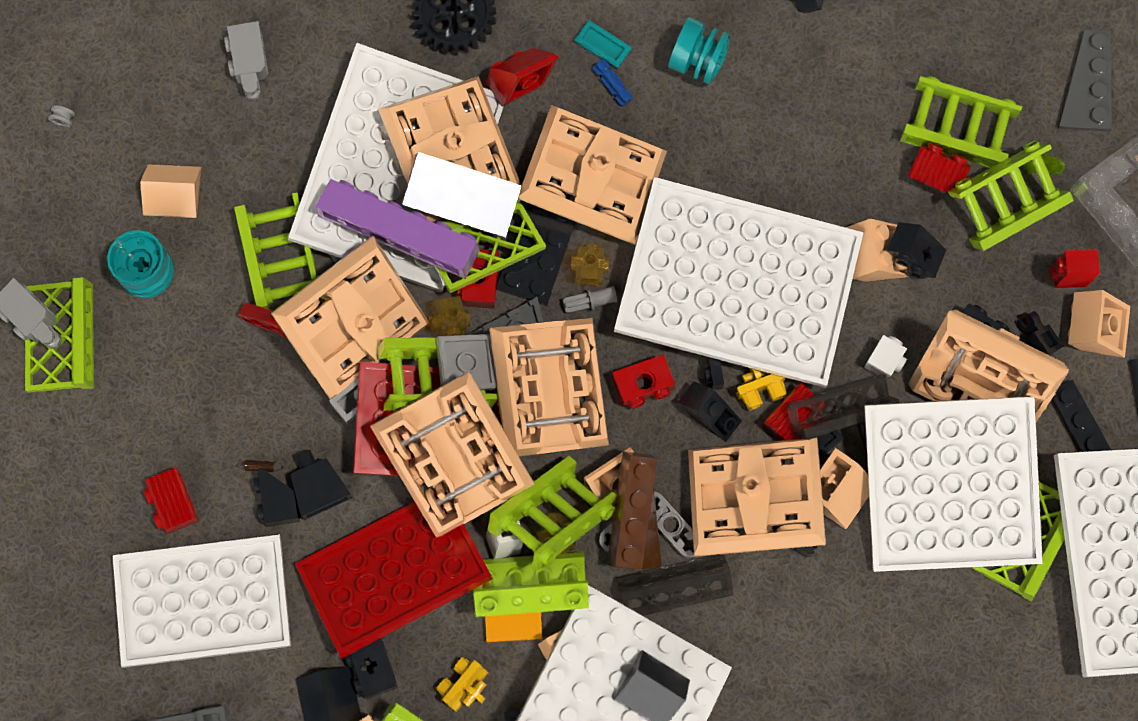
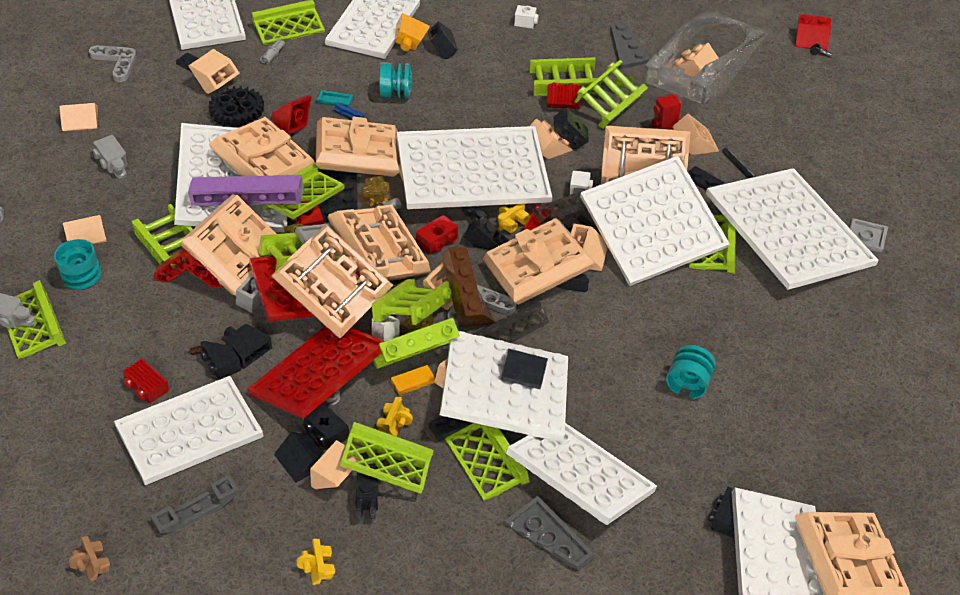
camera: 20 degrees left, 30 degrees down
(461, 195) = (271, 162): tile -> none

